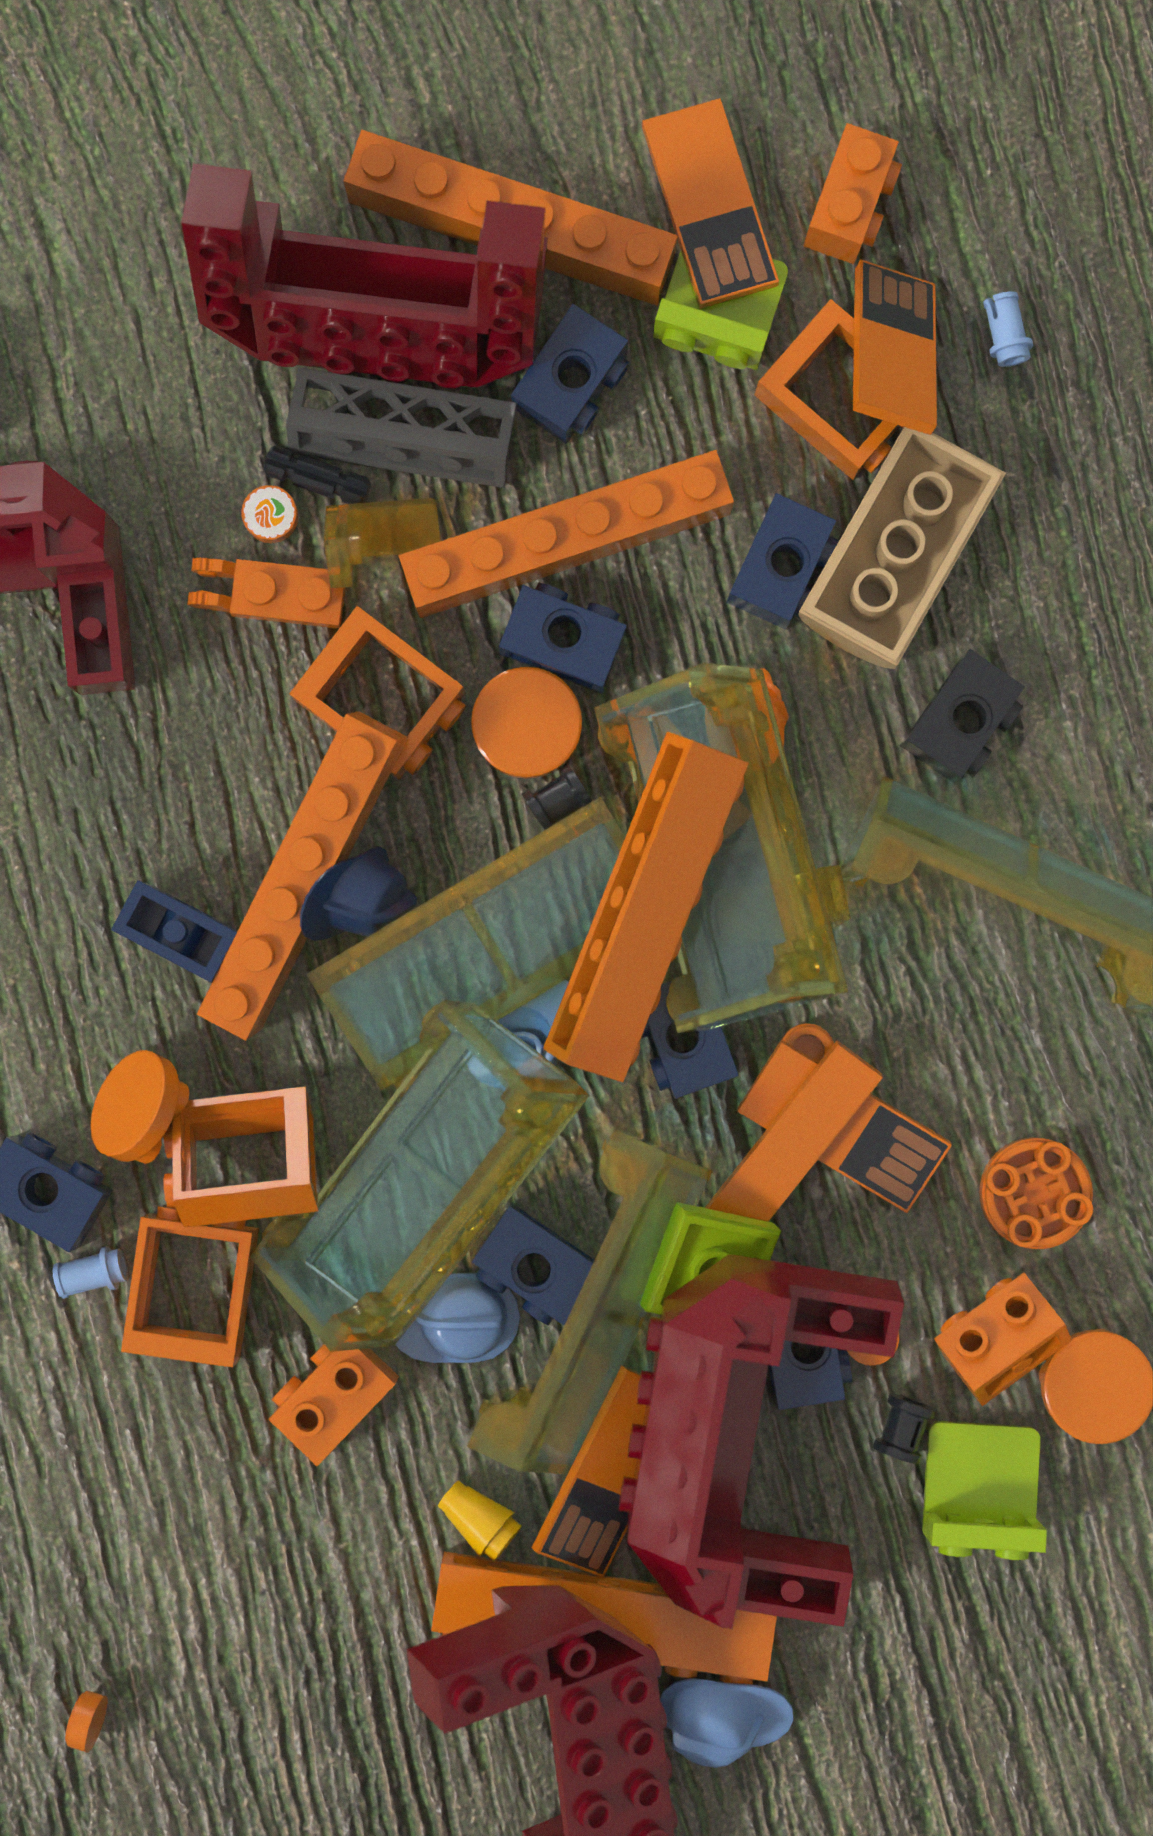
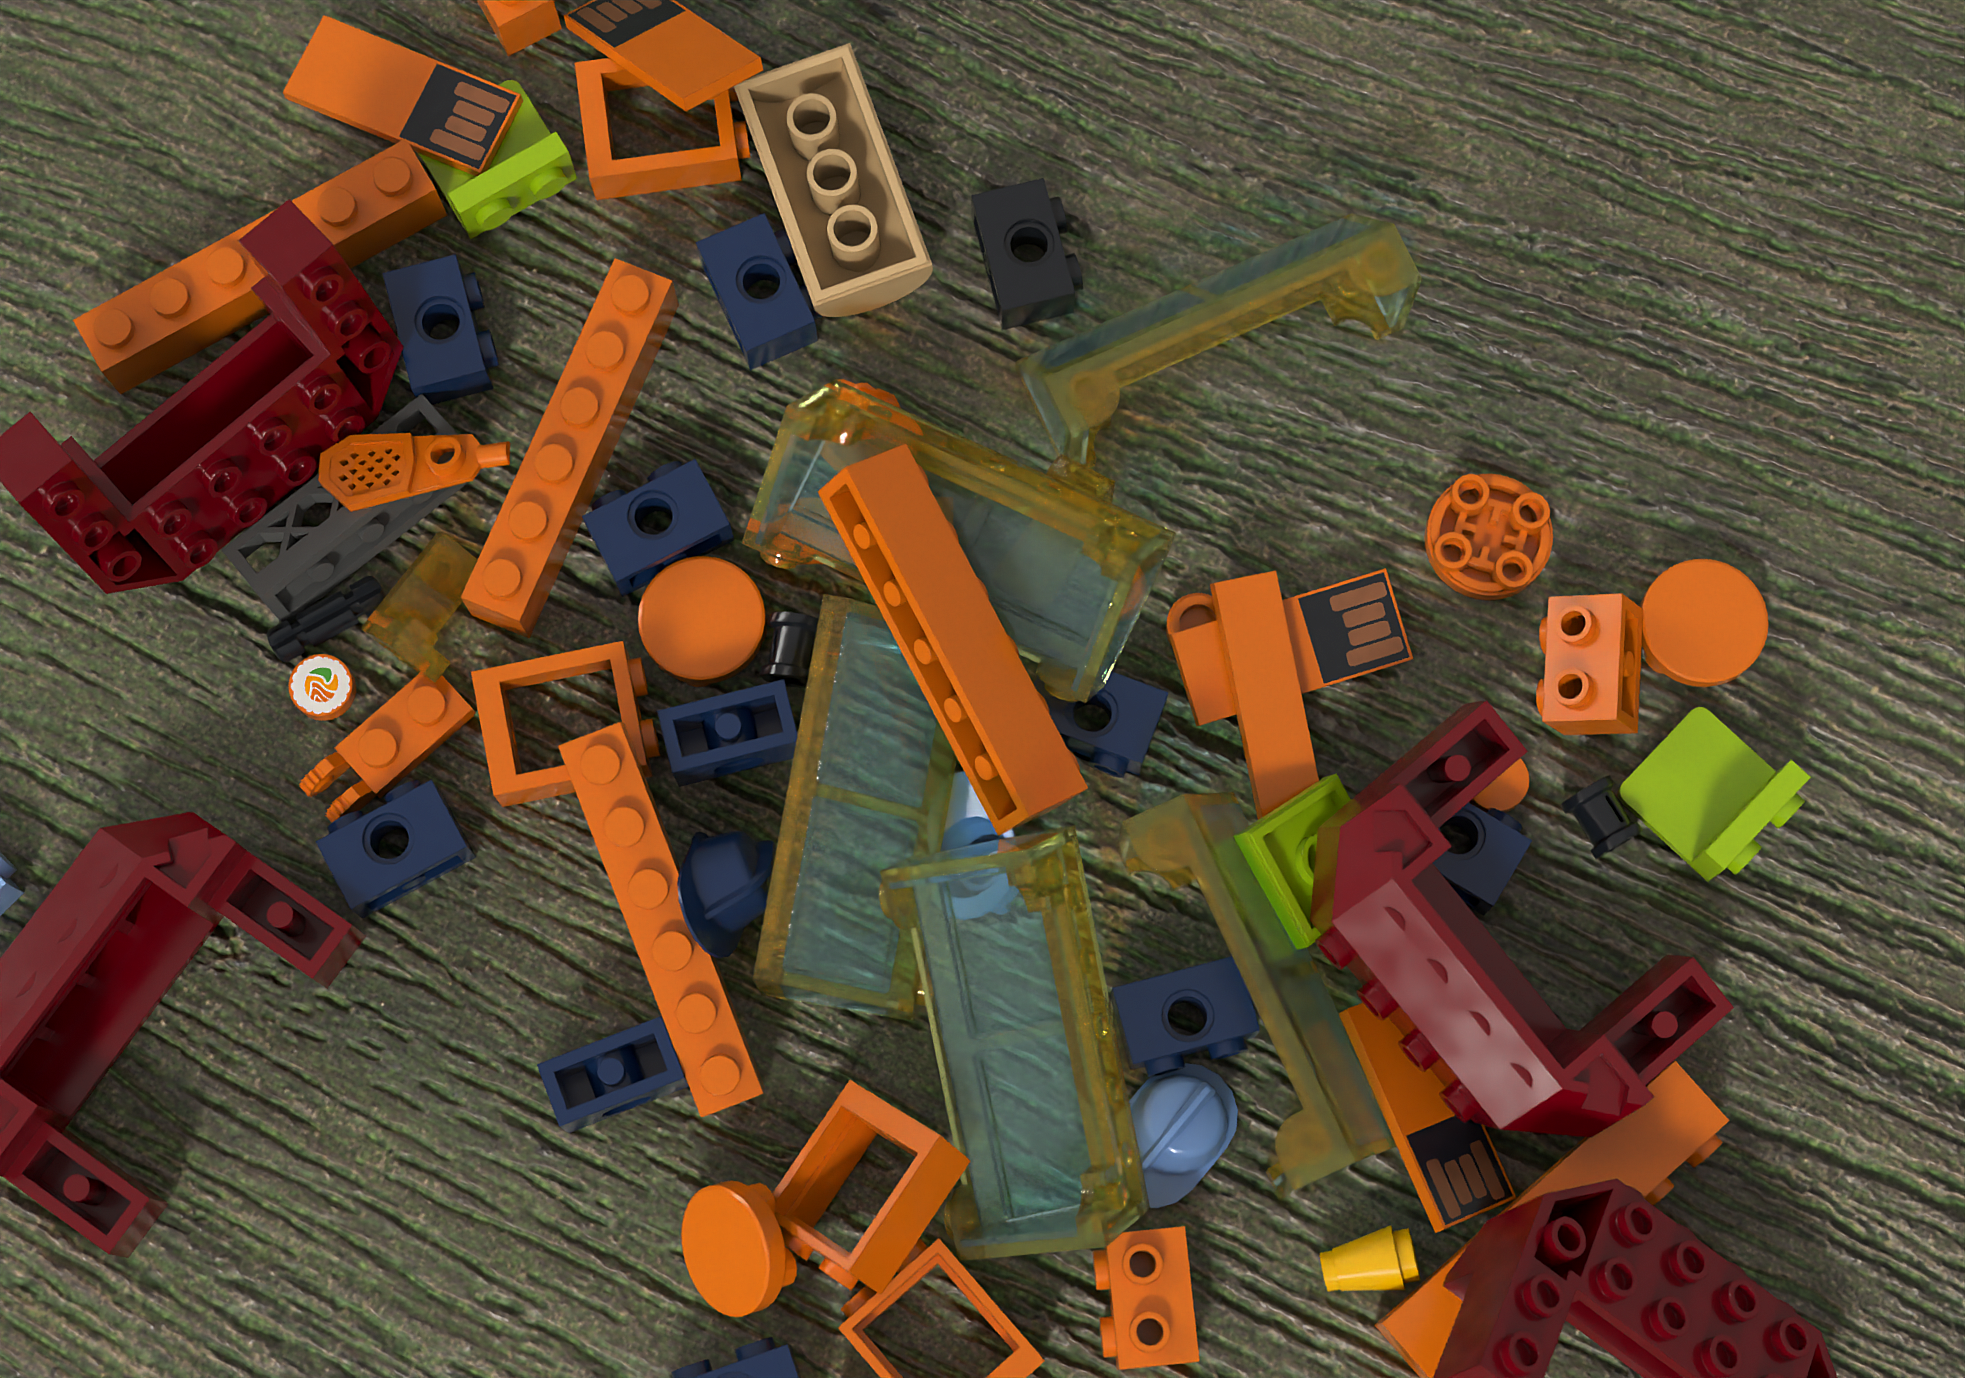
camera: 45 degrees left, 10 degrees down
(171, 653) = (432, 851): none -> dark blue brick
(453, 447) = (395, 466): none -> orange piece
(463, 809) = (729, 733): none -> dark blue brick
(722, 1721) = (1735, 1190): medium blue piece -> none

